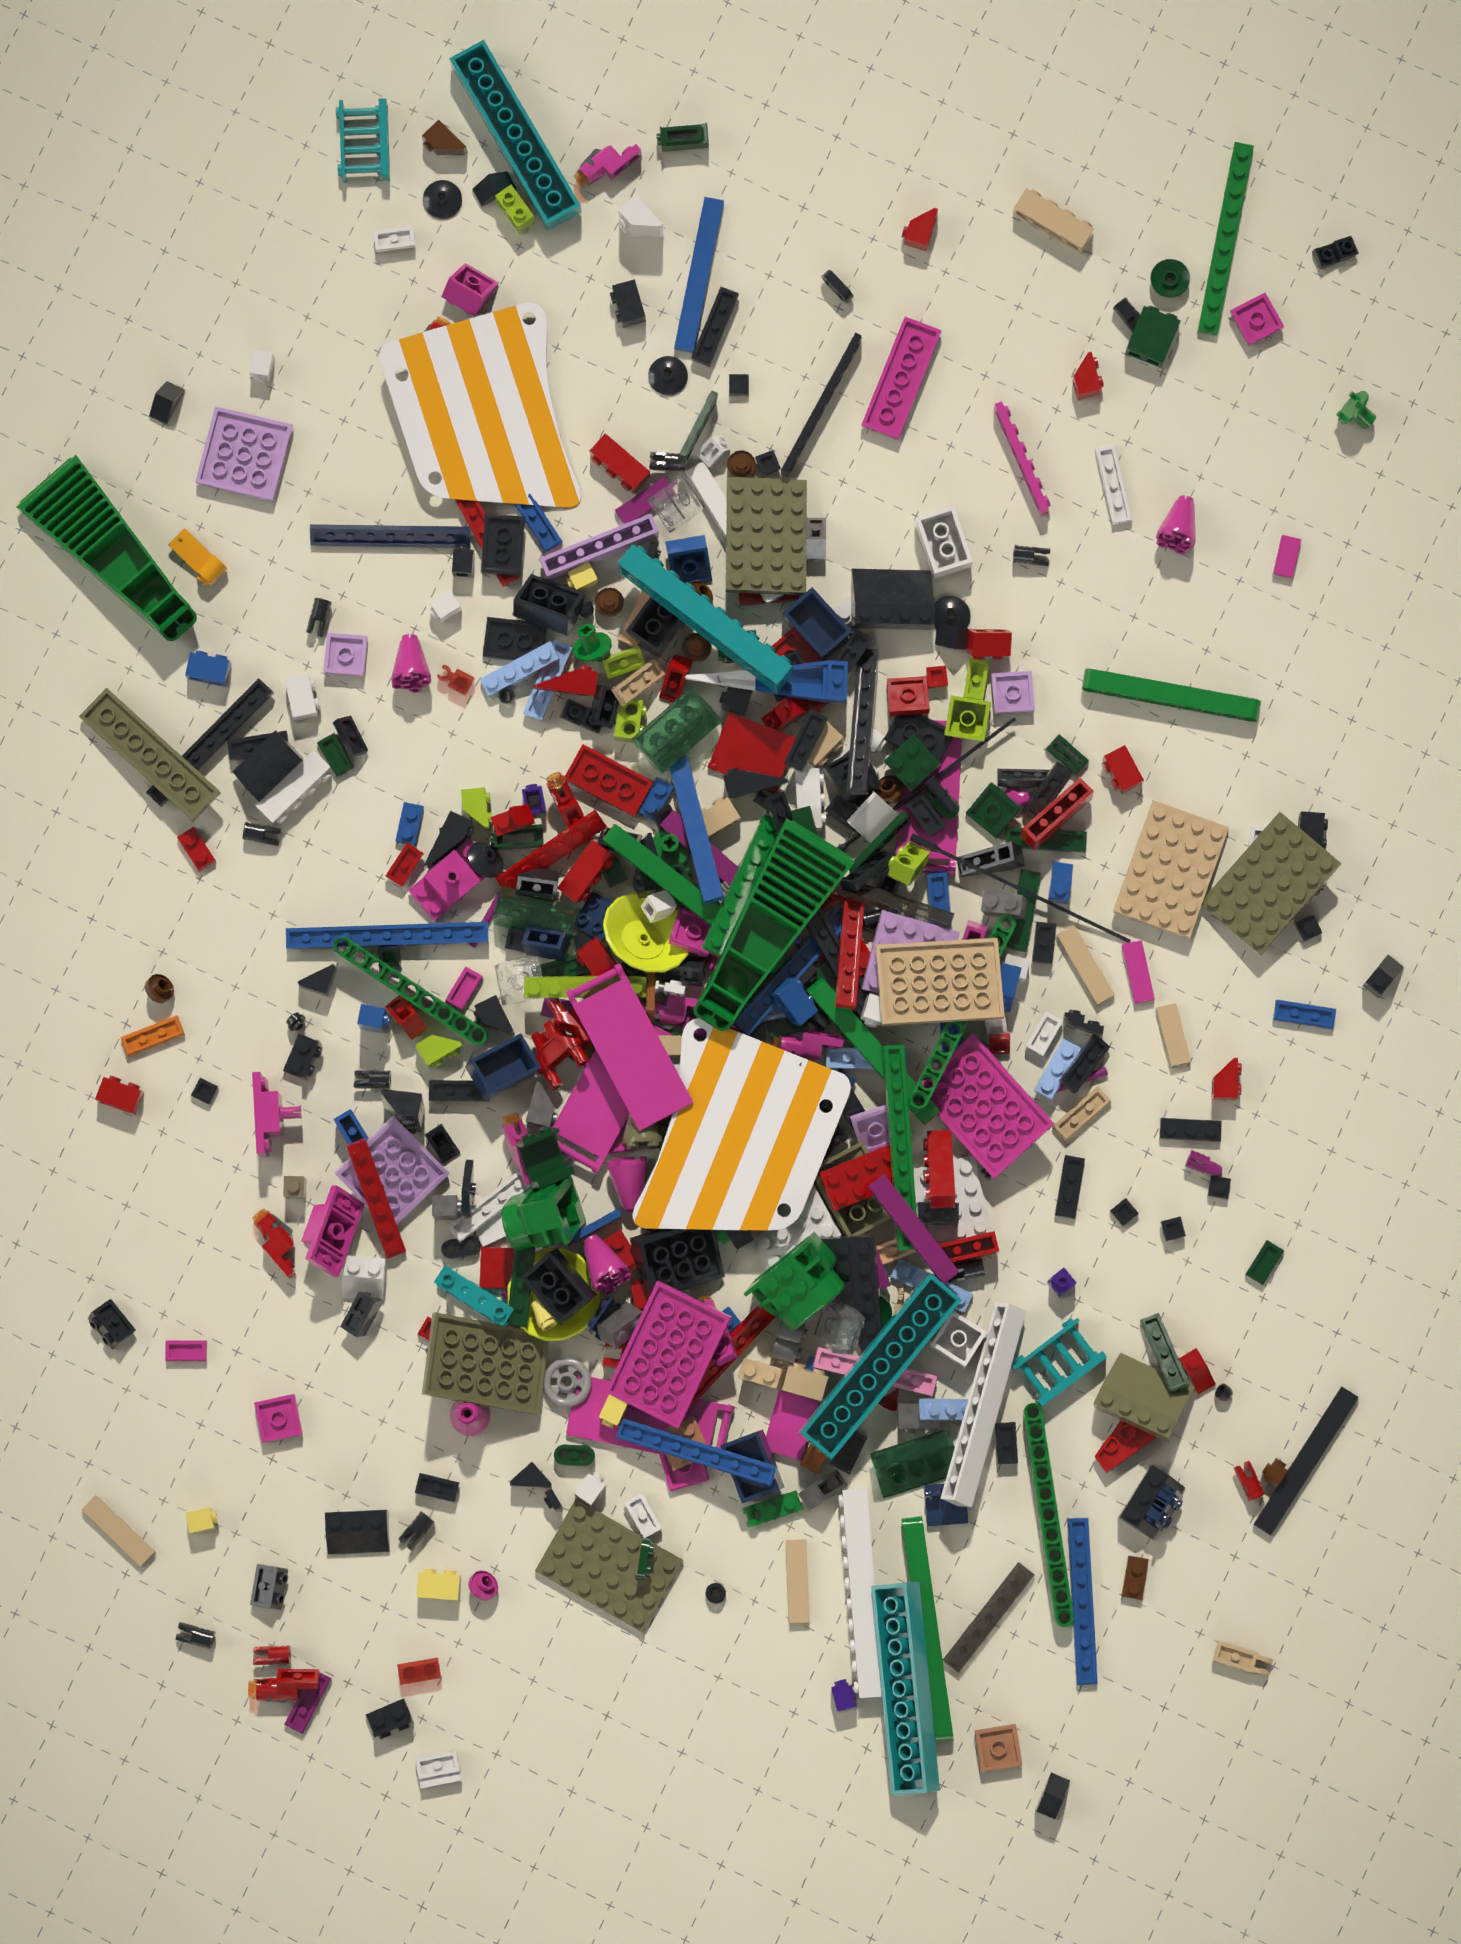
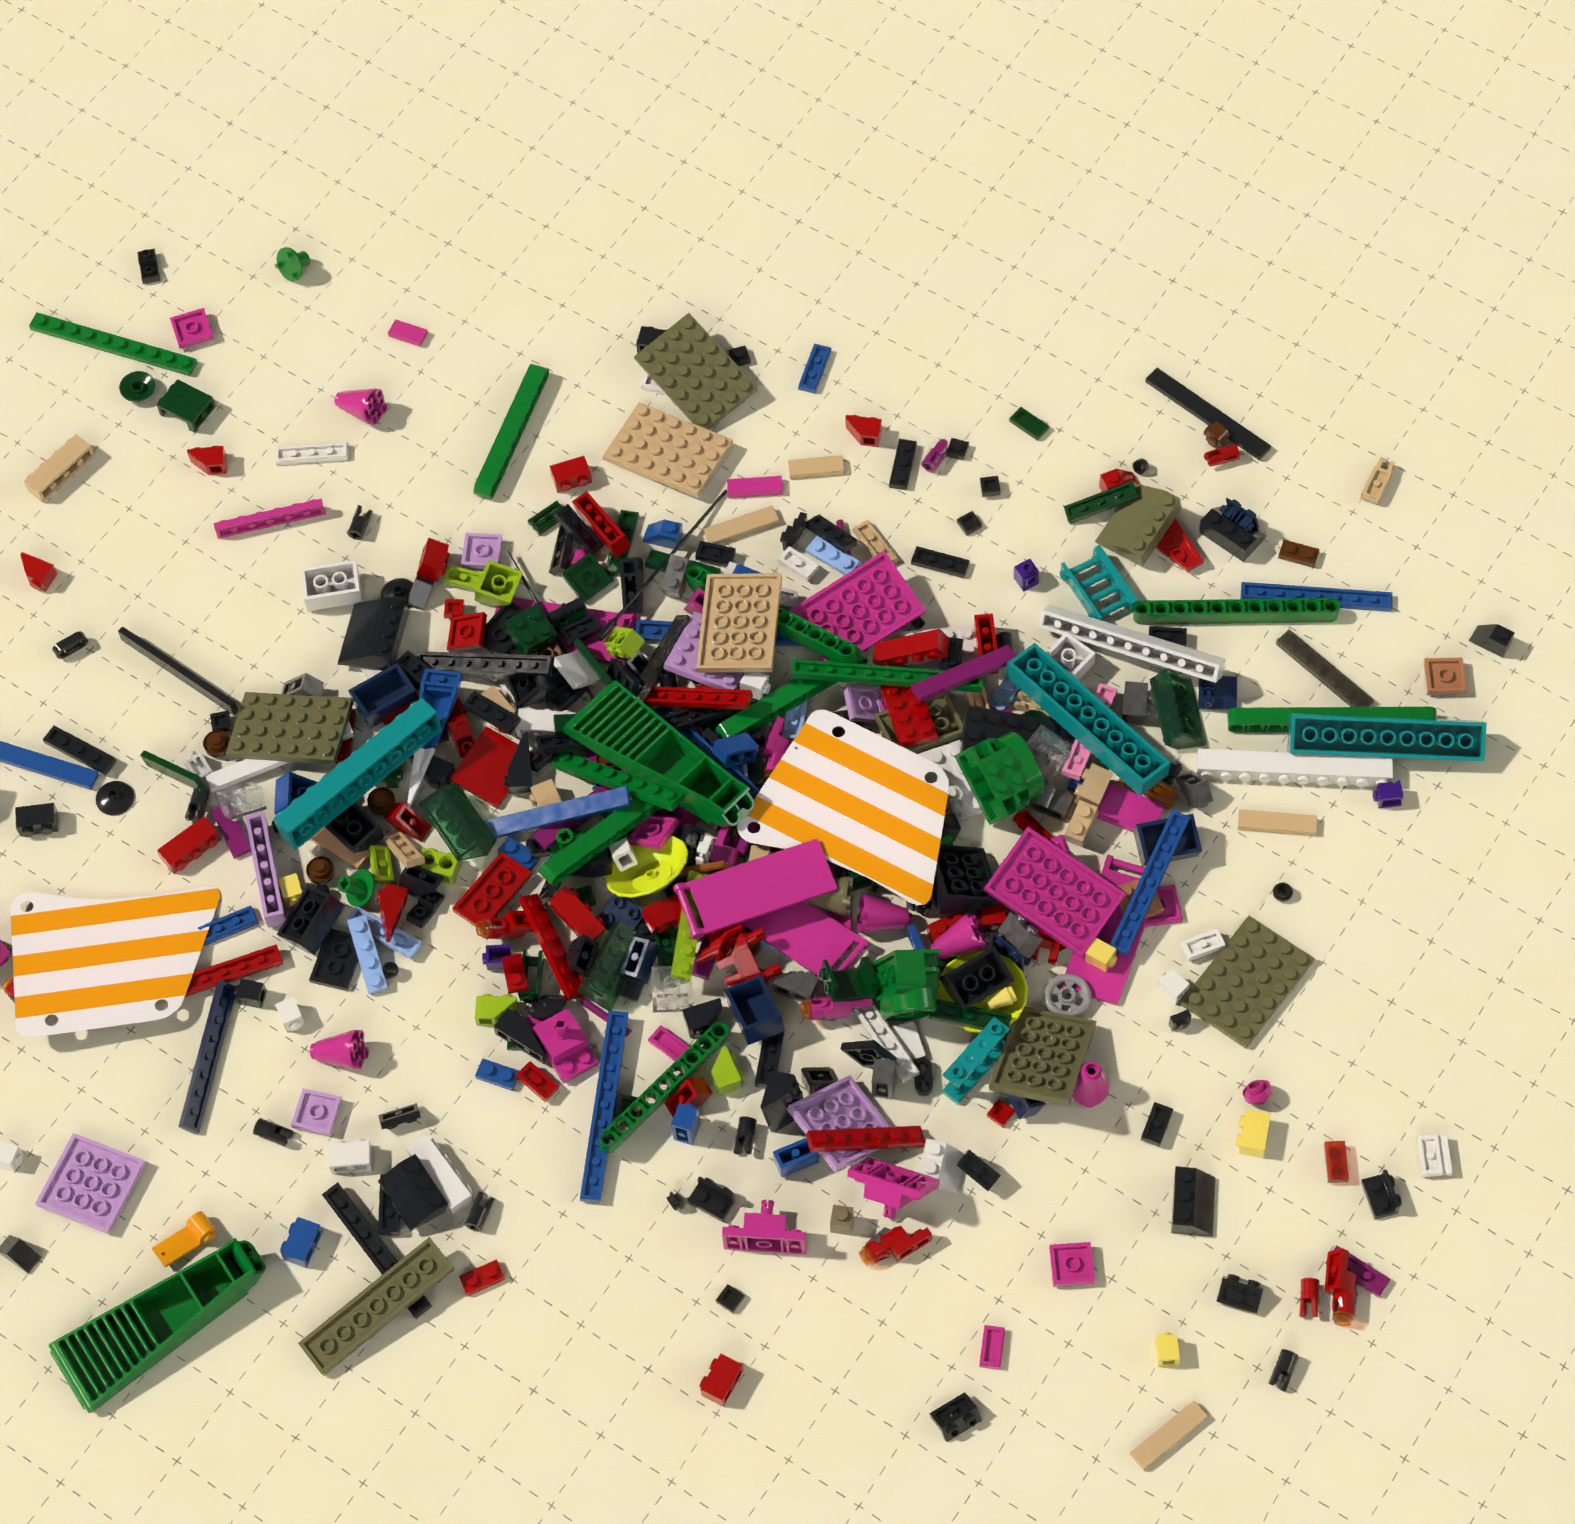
camera: 80 degrees left, 20 degrees down
(152, 1035) = (665, 1342): orange tile -> none
(159, 988) = (618, 1327): reddish brown plate -> none
(320, 981) = (640, 1172): black slope -> none
(335, 755) = (410, 1134): dark green tile -> none
(418, 1526) = (1194, 1145): black hinge -> none
(458, 681) = (365, 1011): clear red plate -> none
(495, 1267) = (946, 1042): red tile -> none
(502, 545) = (242, 953): black tile -> none
(531, 1477) = (1154, 1037): black slope -> none
(574, 1455) = (1138, 998): dark green plate -> none
(644, 1568) = (1246, 942): dark green plate -> none
(738, 384) = (139, 738): black tile -> none
(773, 1508) = (1208, 834): green plate -> none
(901, 378) = (170, 604): dark pink plate -> none
(942, 1409) = (1132, 675): light blue plate -> none
(999, 1043) = (799, 595): red tile -> none
(1126, 312) = (159, 422): black hinge -> none
(1383, 976) = (793, 306): black slope -> none

